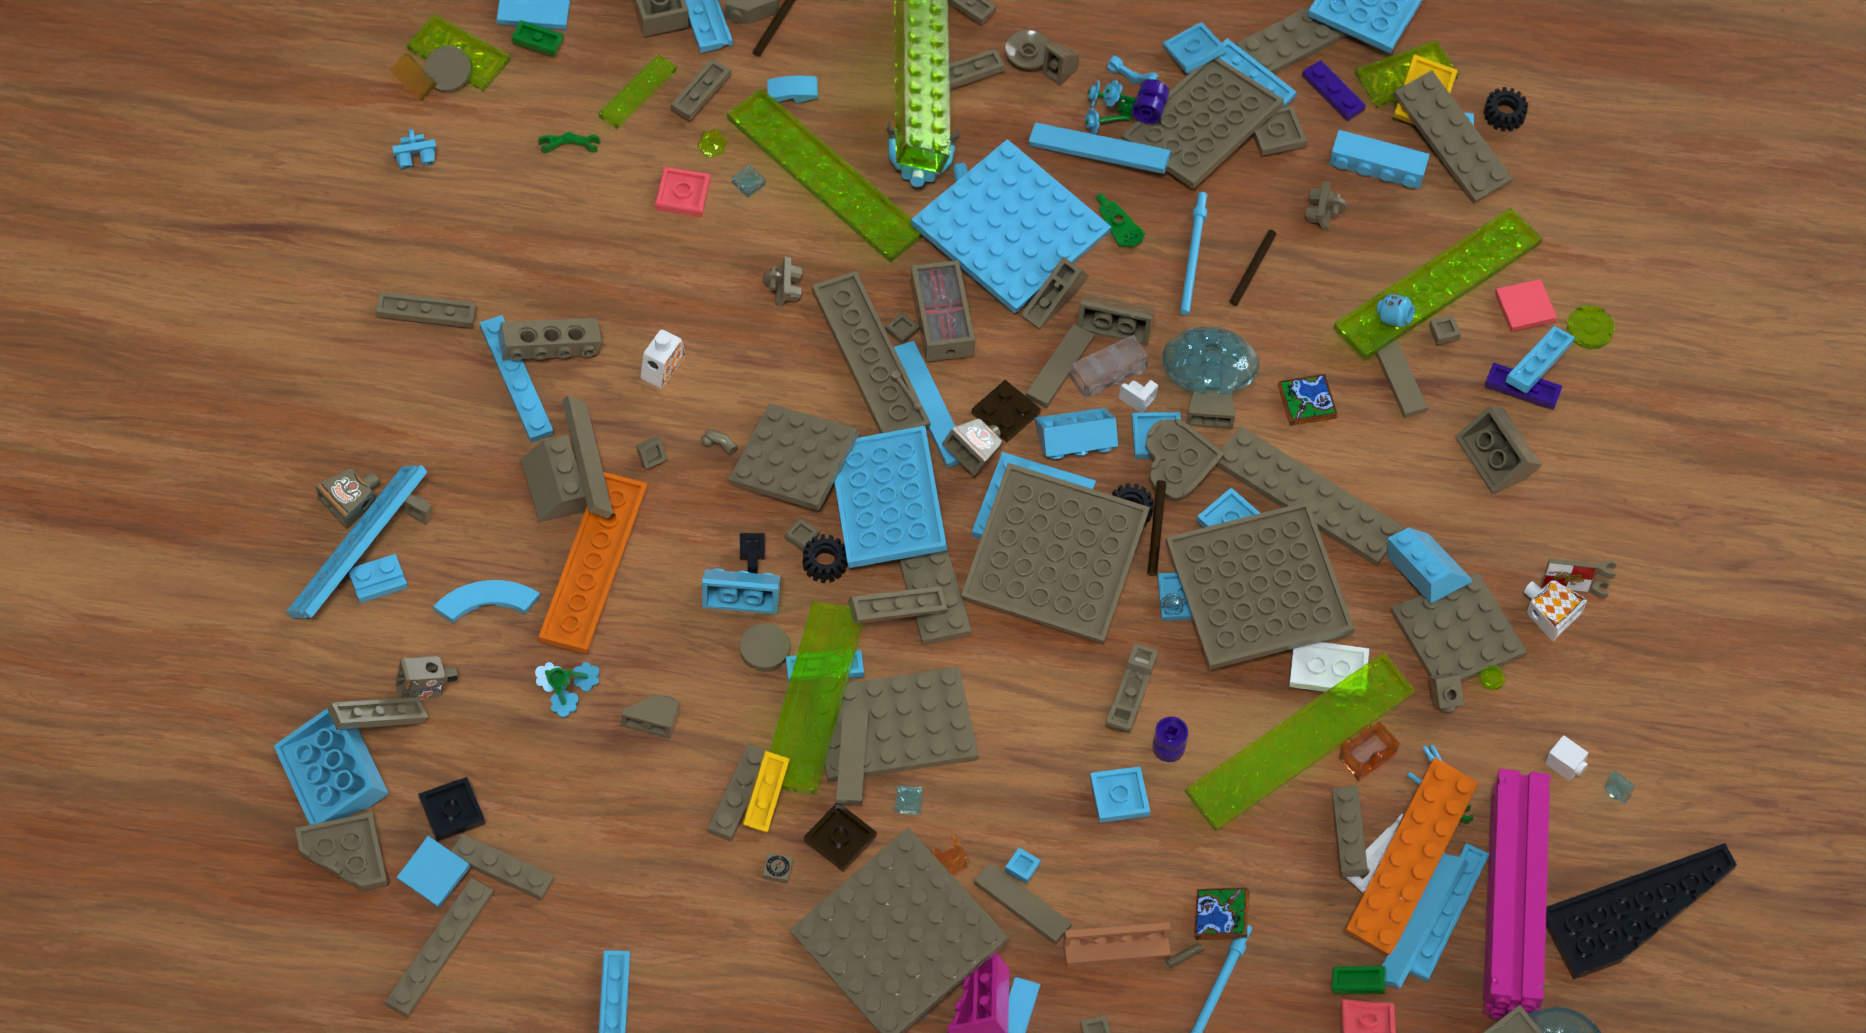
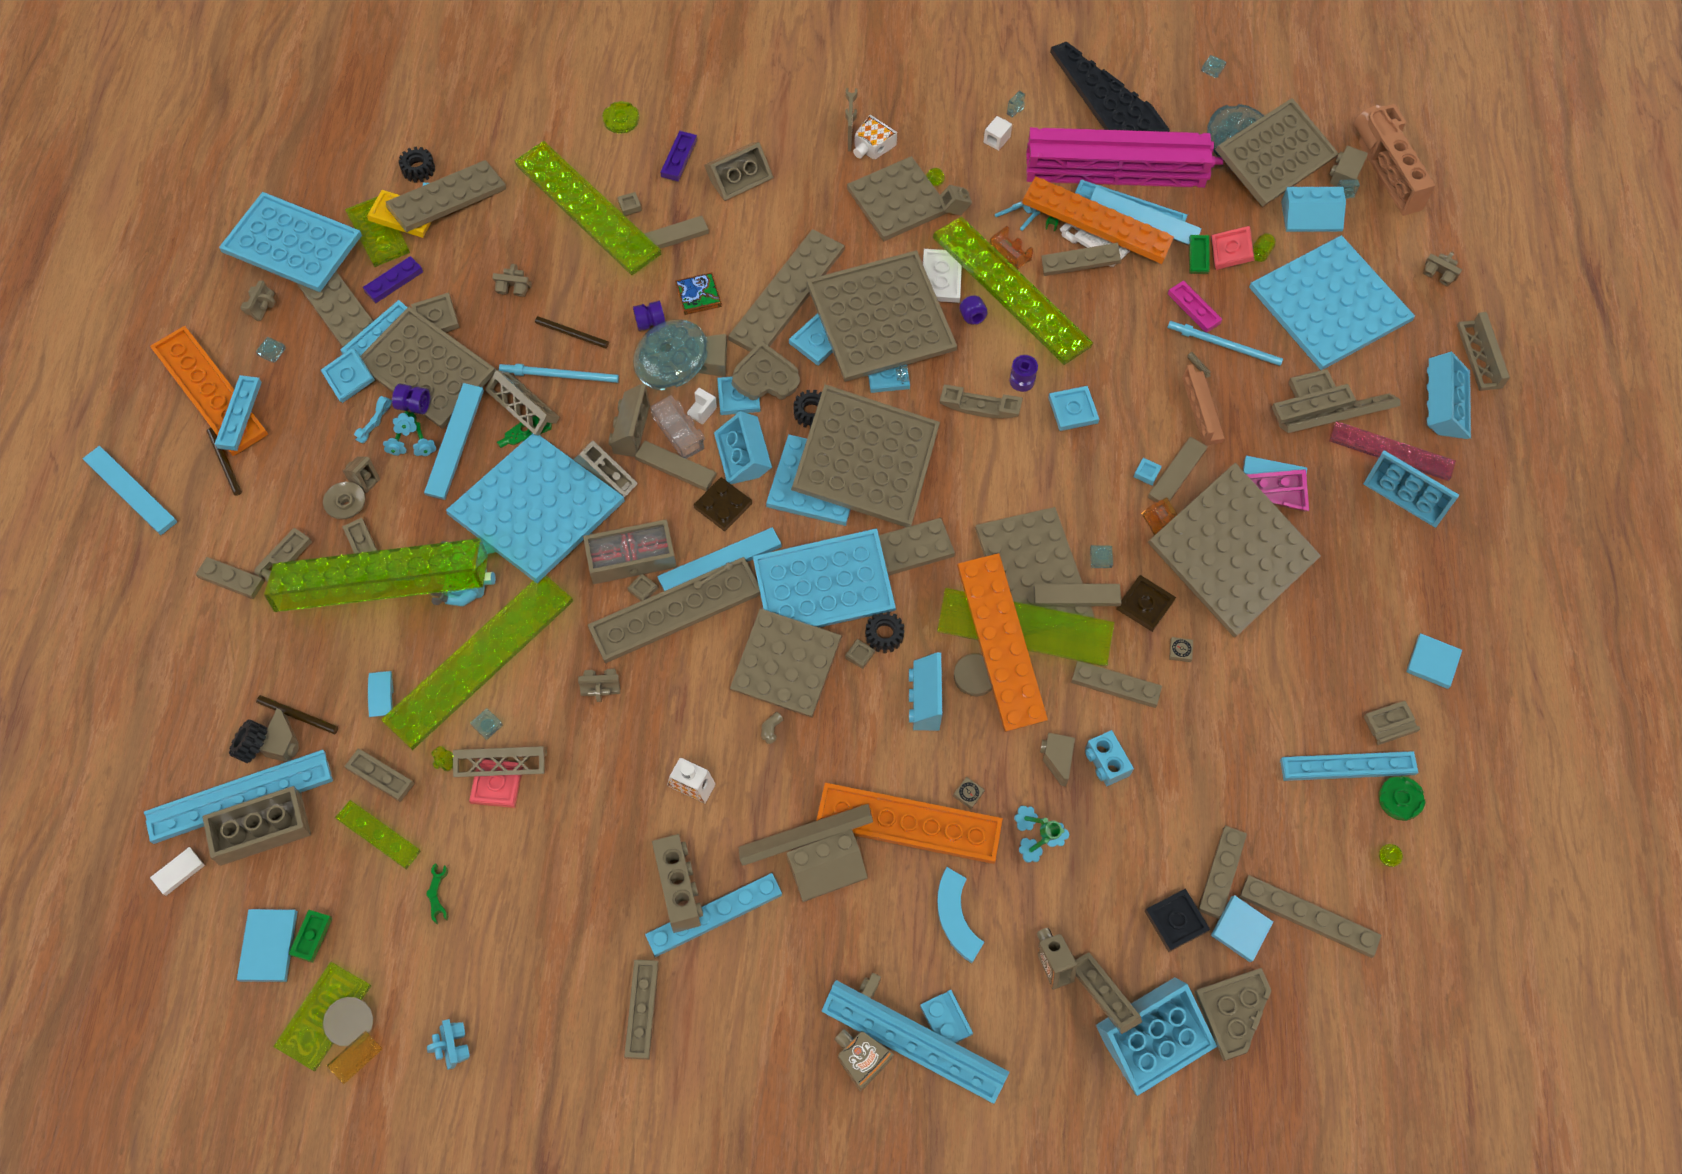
camera: 90 degrees left, 5 degrees up
(622, 625) = (968, 793): none -> dark tan tile
(649, 771) = (1114, 756): none -> medium azure brick
(651, 452) = (790, 782): dark tan tile -> none
(712, 192) = (503, 753): none -> dark tan fence
(752, 548) = (880, 690): black plate -> none
(765, 792) = (1120, 659): yellow plate -> none
(793, 663) = (1002, 642): none -> orange plate
(897, 604) = (938, 563): dark tan plate -> none
(973, 444) = (766, 519): dark tan torso -> none
(1151, 213) = (510, 384): none -> dark tan fence
(1156, 528) = (819, 387): dark brown bar -> none
(1221, 913) = (1163, 338): tile -> none
(1269, 342) = (648, 315): none -> dark purple wheel
(1271, 696) = (973, 310): none -> dark purple head
(1273, 961) = (1195, 306): none -> dark pink plate
(1379, 159) = (466, 246): medium azure brick -> none
(1396, 310) = (622, 225): medium azure head -> none
(1426, 564) = (848, 212): medium azure slope -> none
(1525, 305) = (603, 155): coral tile -> none
(1540, 359) = (658, 141): medium azure plate -> none

